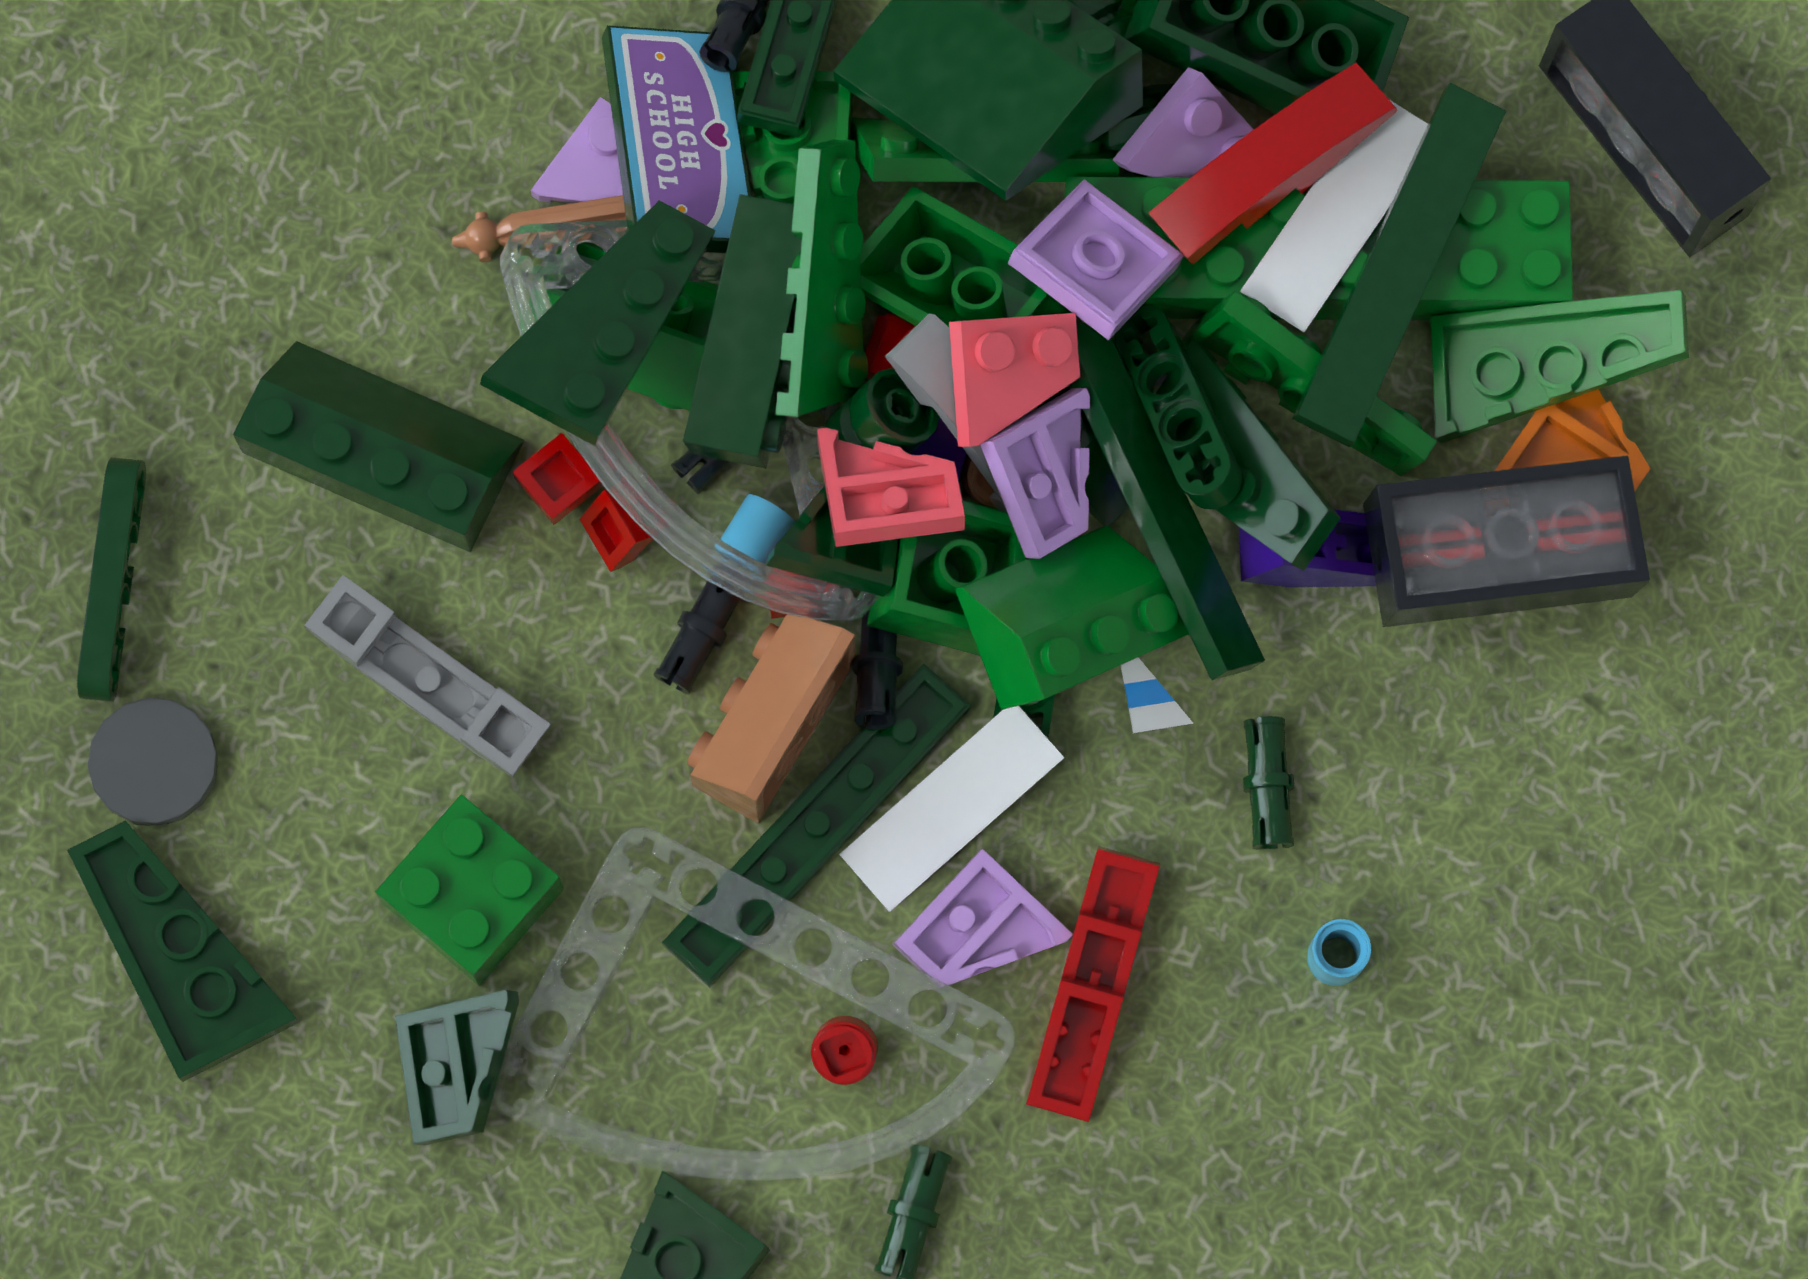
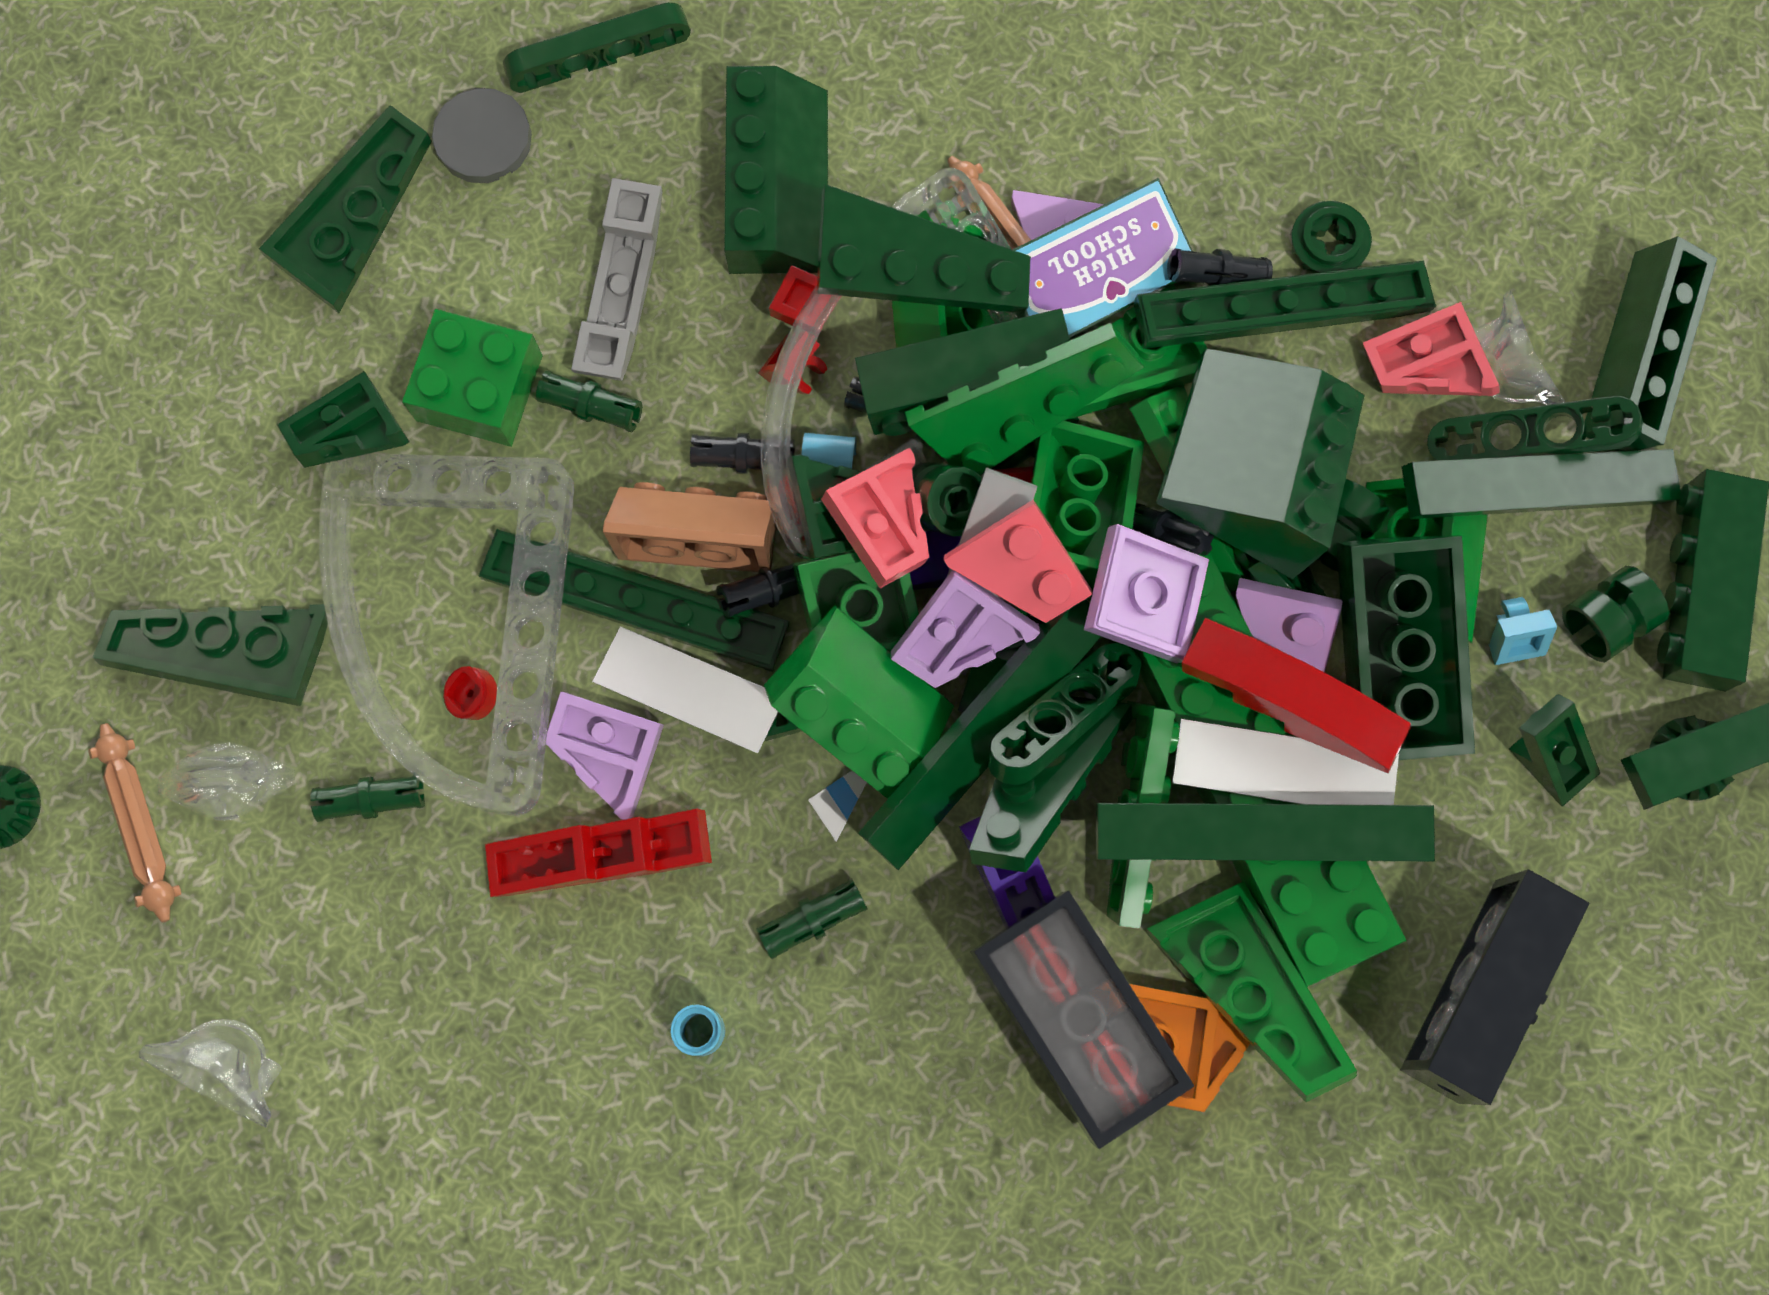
camera: 70 degrees right, 0 degrees up
(557, 773) = (589, 401): none -> dark green pin
(1026, 207) = (1172, 529): none -> black axle

